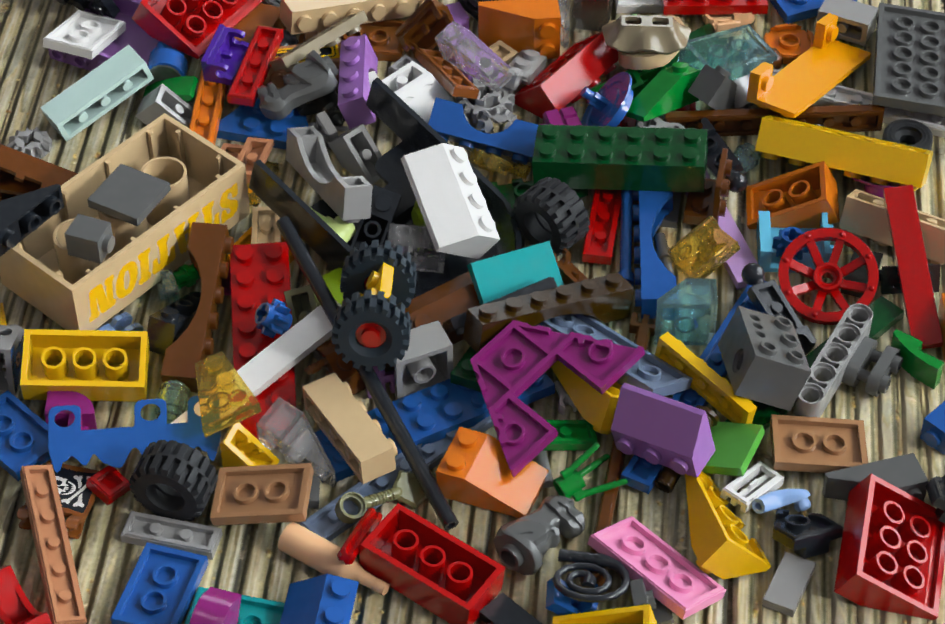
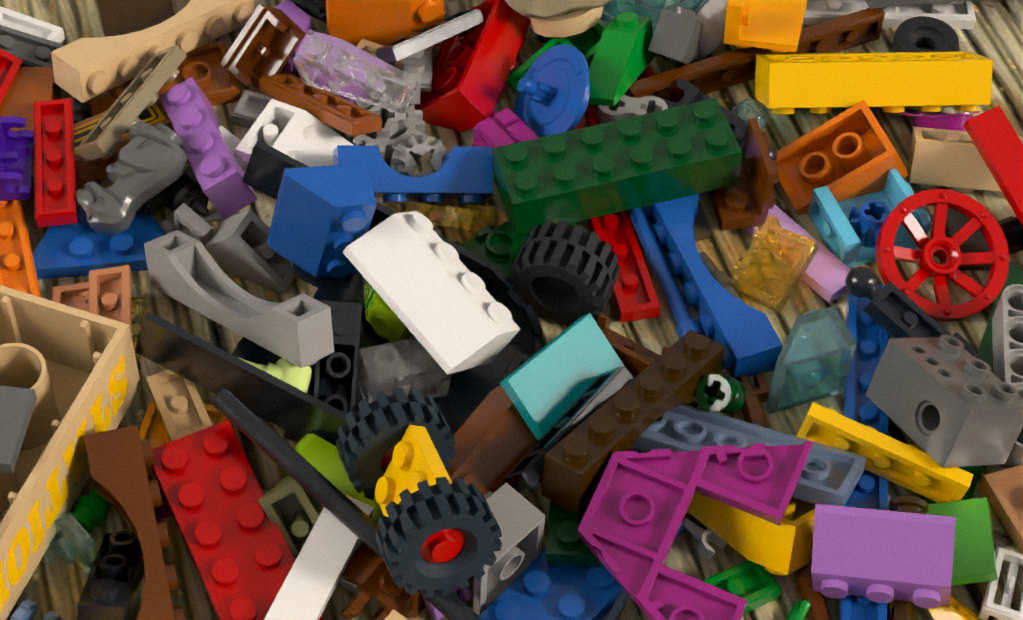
camera: 25 degrees left, 5 degrees up
(273, 318) = (268, 552): blue gear -> none
(396, 130) = (320, 215): none -> blue slope
(540, 46) = (429, 36): none -> tile
(616, 321) = (712, 402): none -> dark green bush

